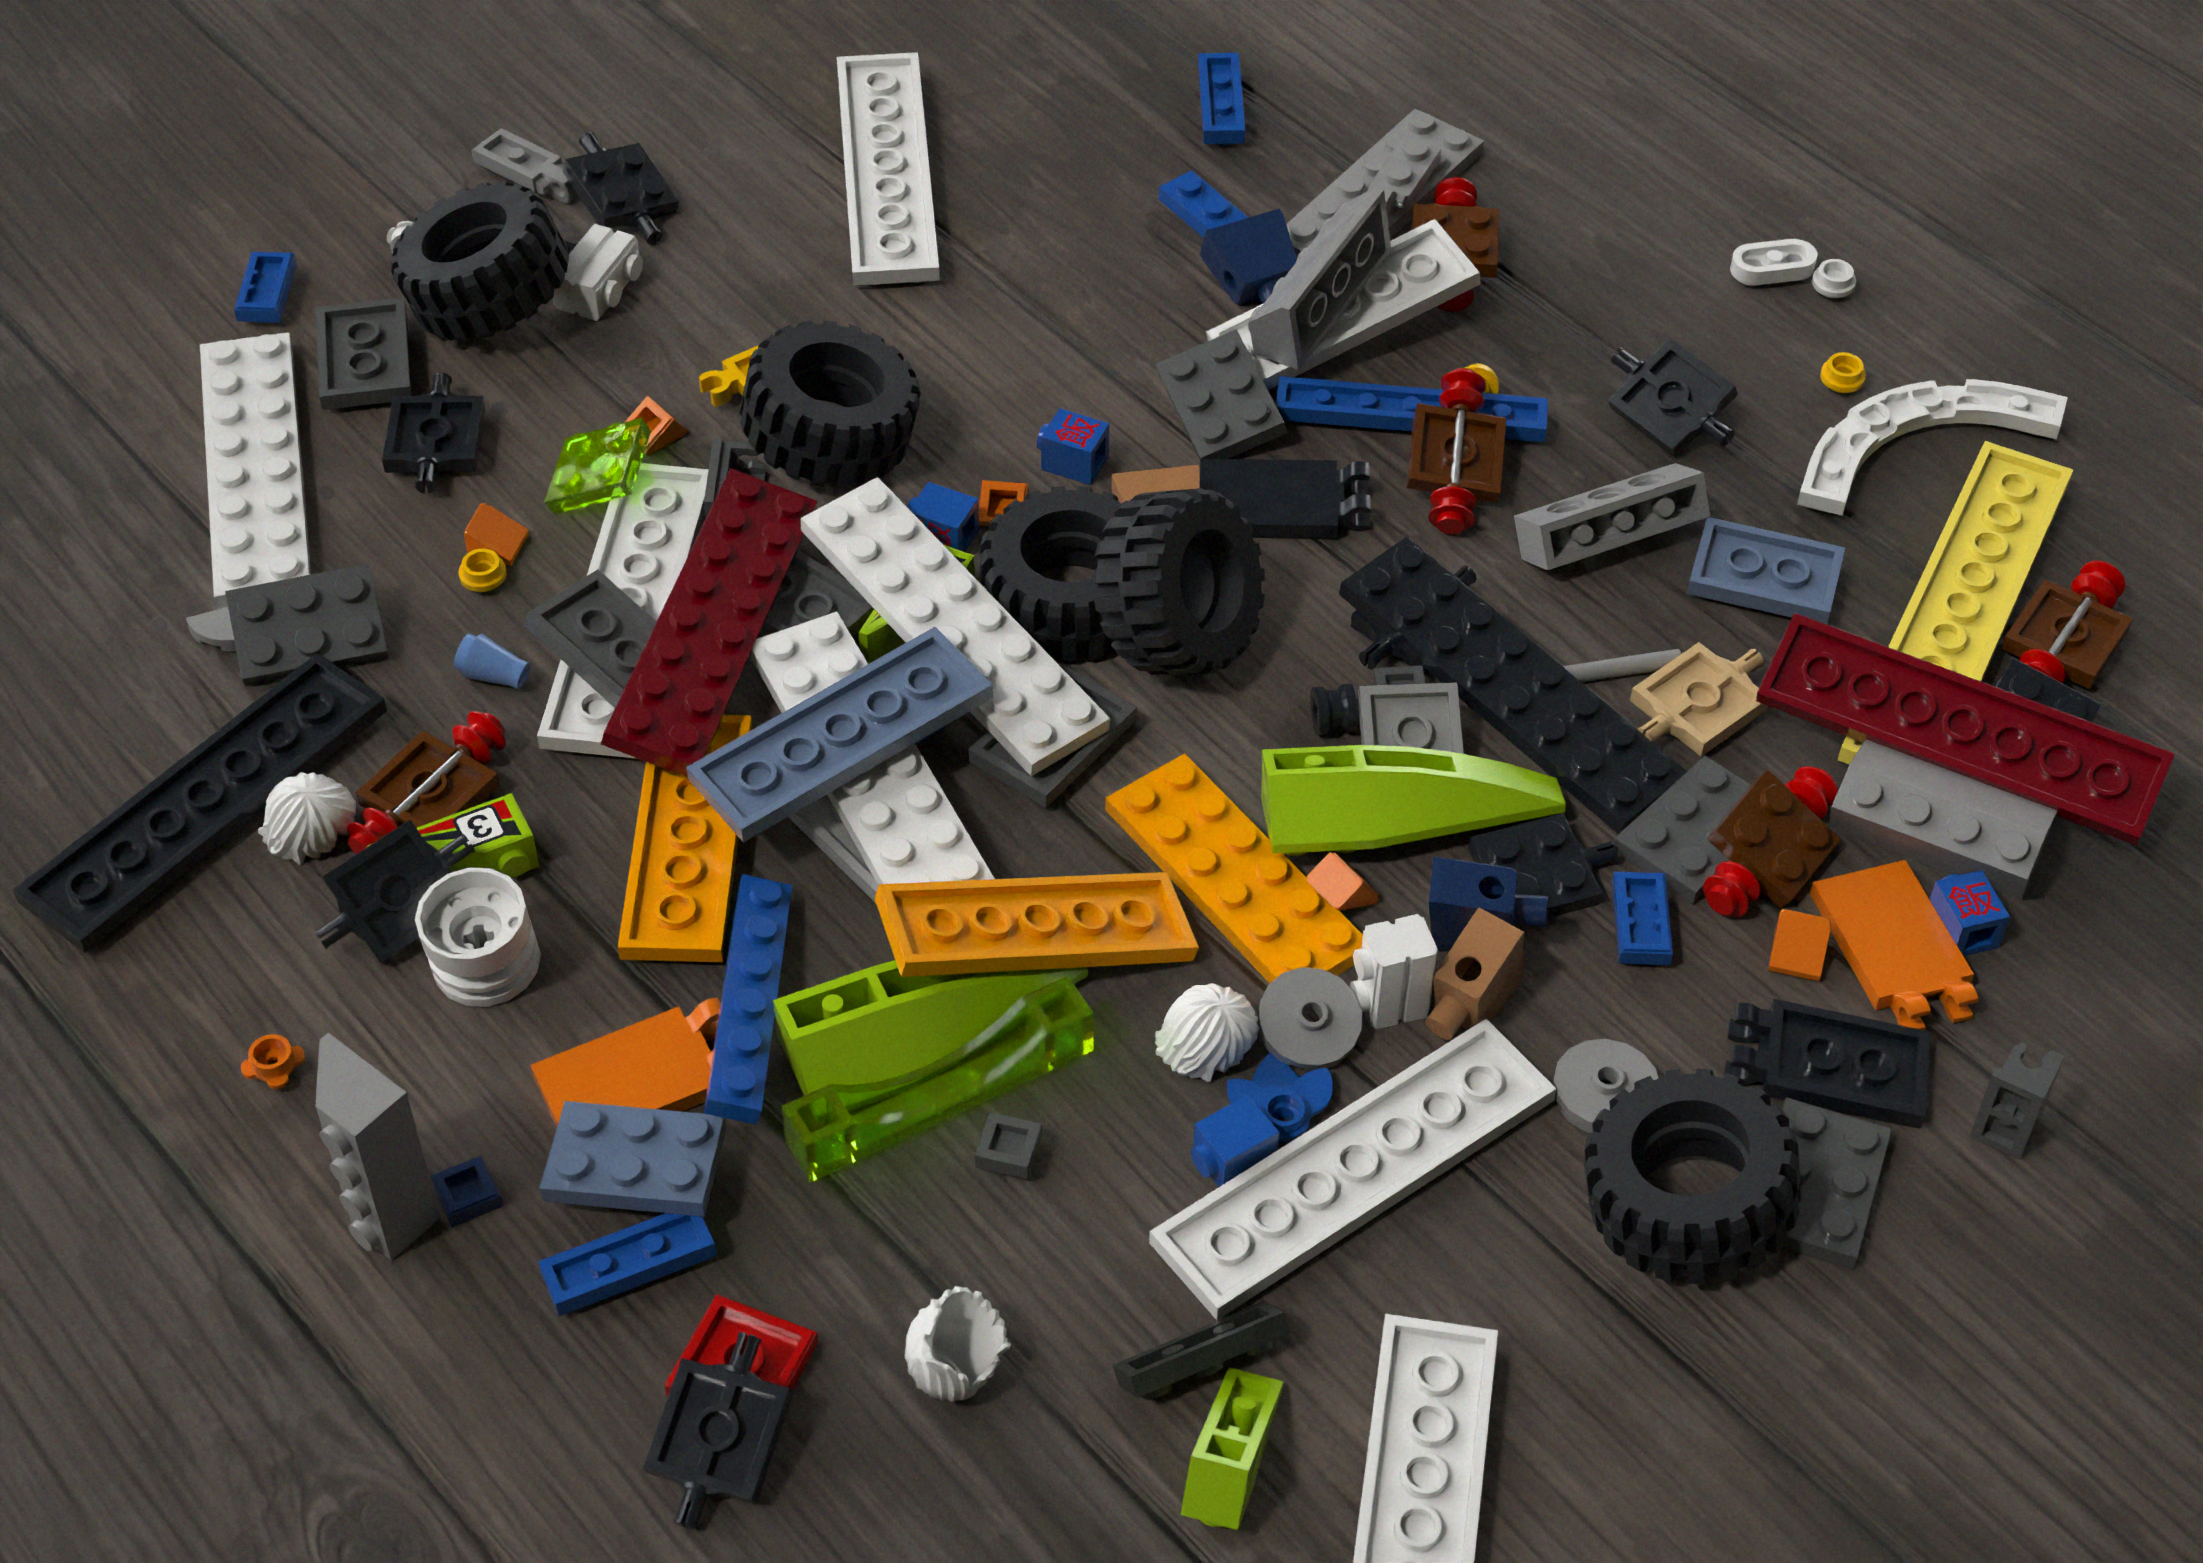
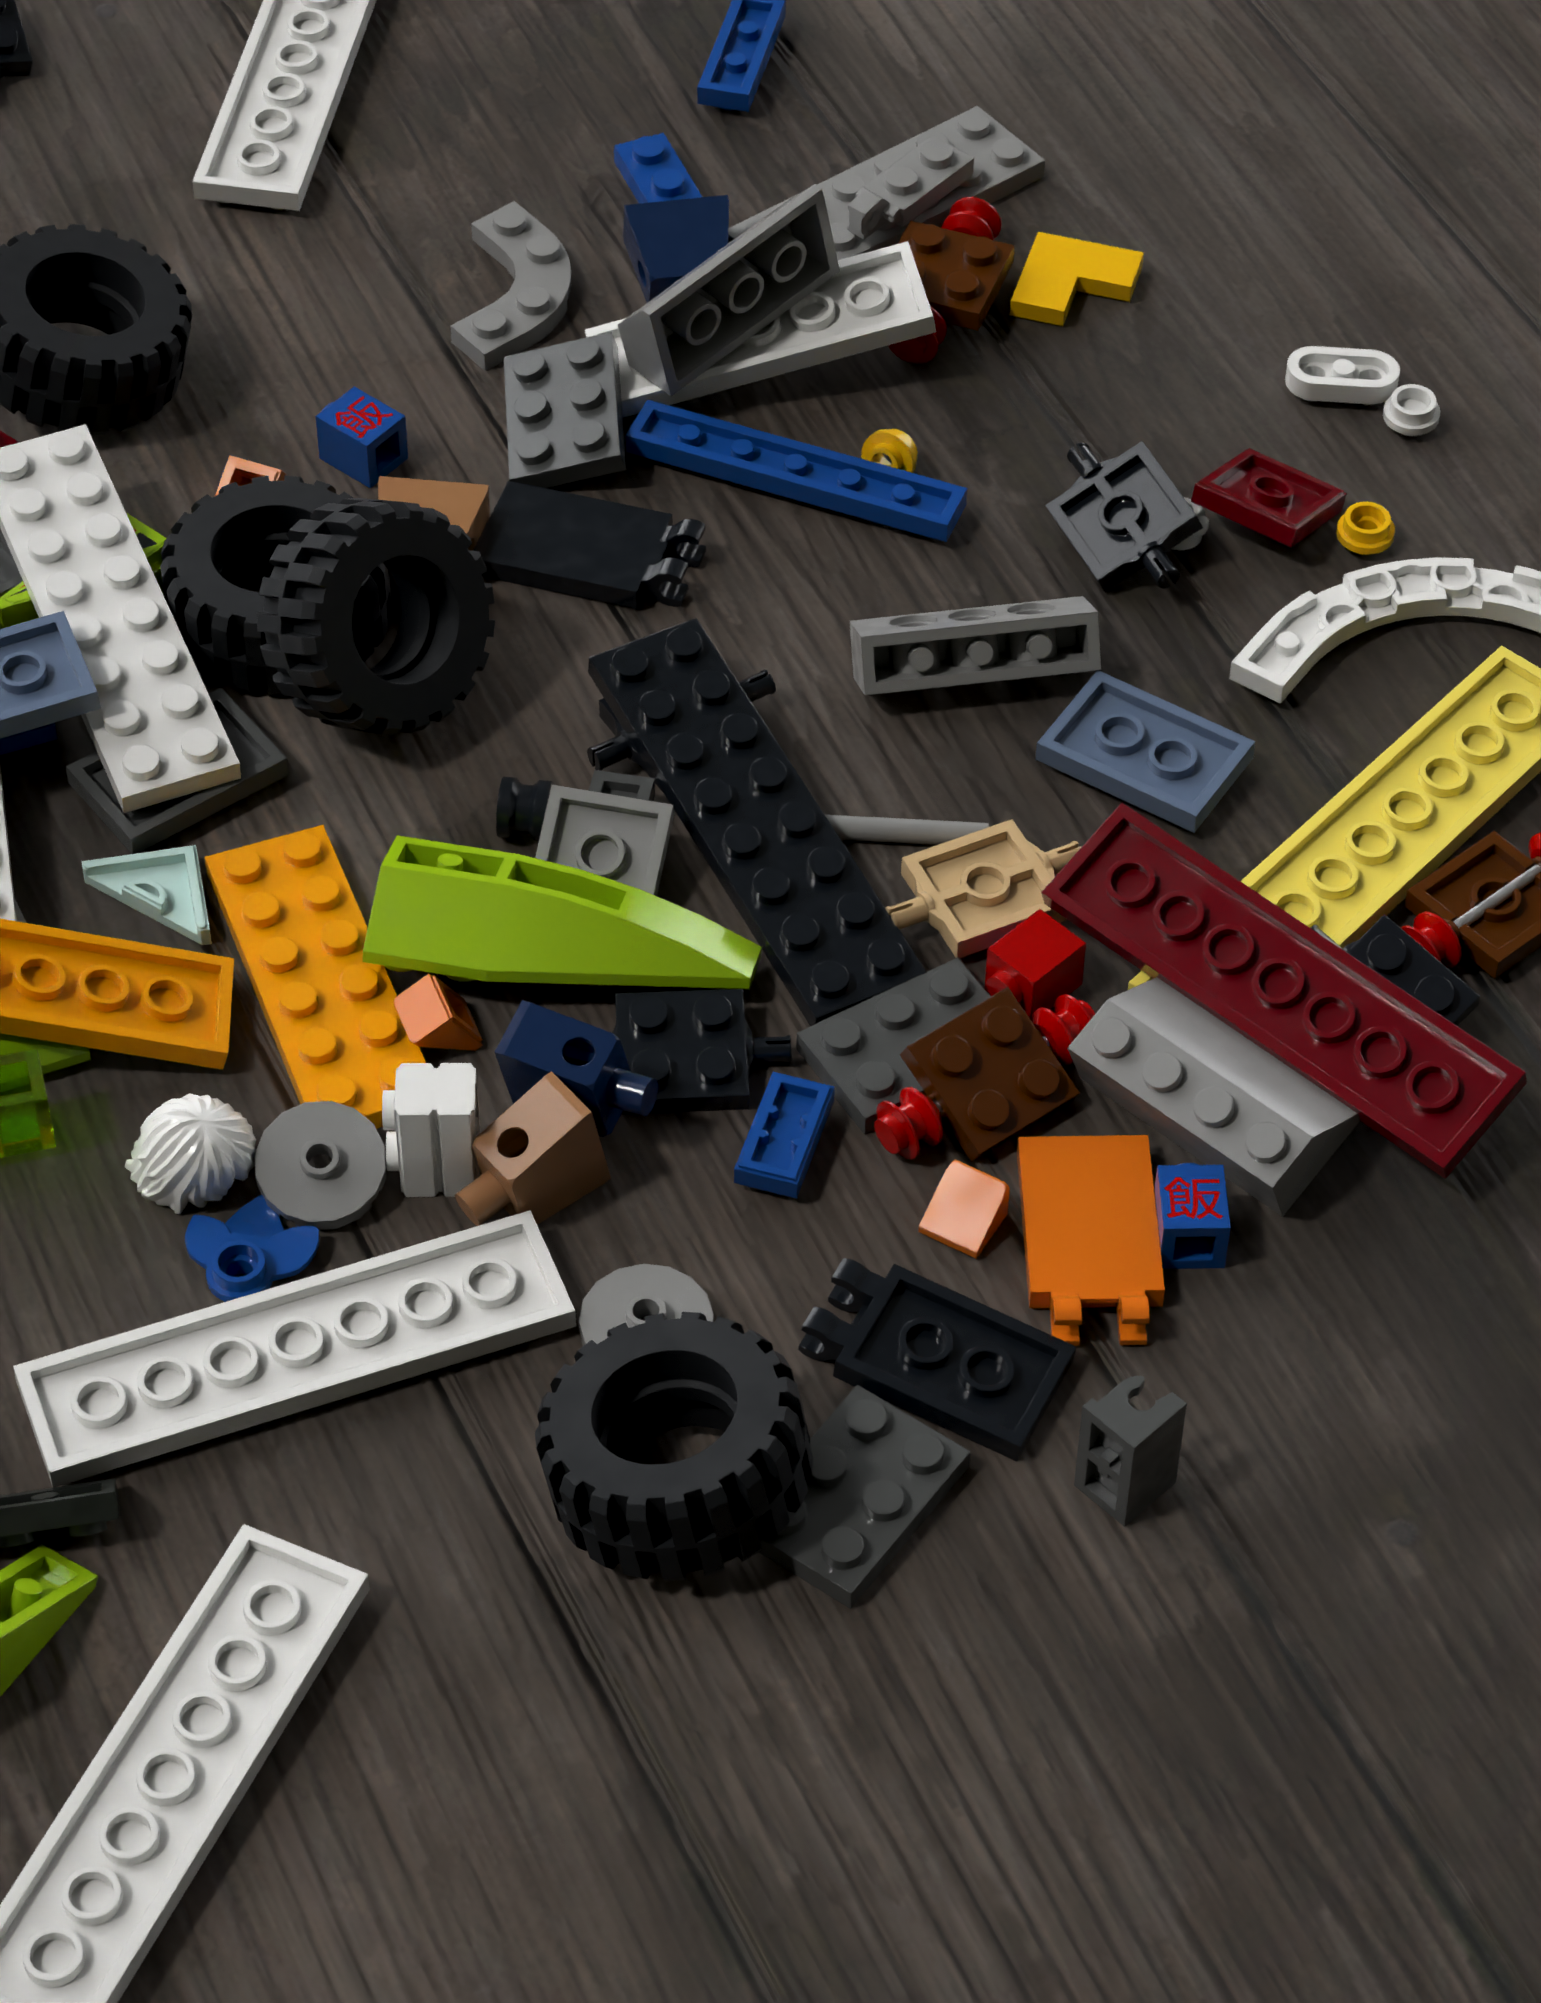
camera: 15 degrees right, 0 degrees up
(947, 515) = (160, 488): blue brick -> none
(1078, 827) = (159, 885): none -> light aqua tile
(1148, 299) = (535, 298): none -> light grey plate
(1233, 1140) = (158, 1282): blue brick -> none
(1456, 451) = (818, 531): reddish brown plate -> none
(1534, 218) = (1067, 265): none -> yellow tile
(1766, 362) = (1269, 497): none -> dark red plate
(1766, 744) = (1036, 962): none -> red brick

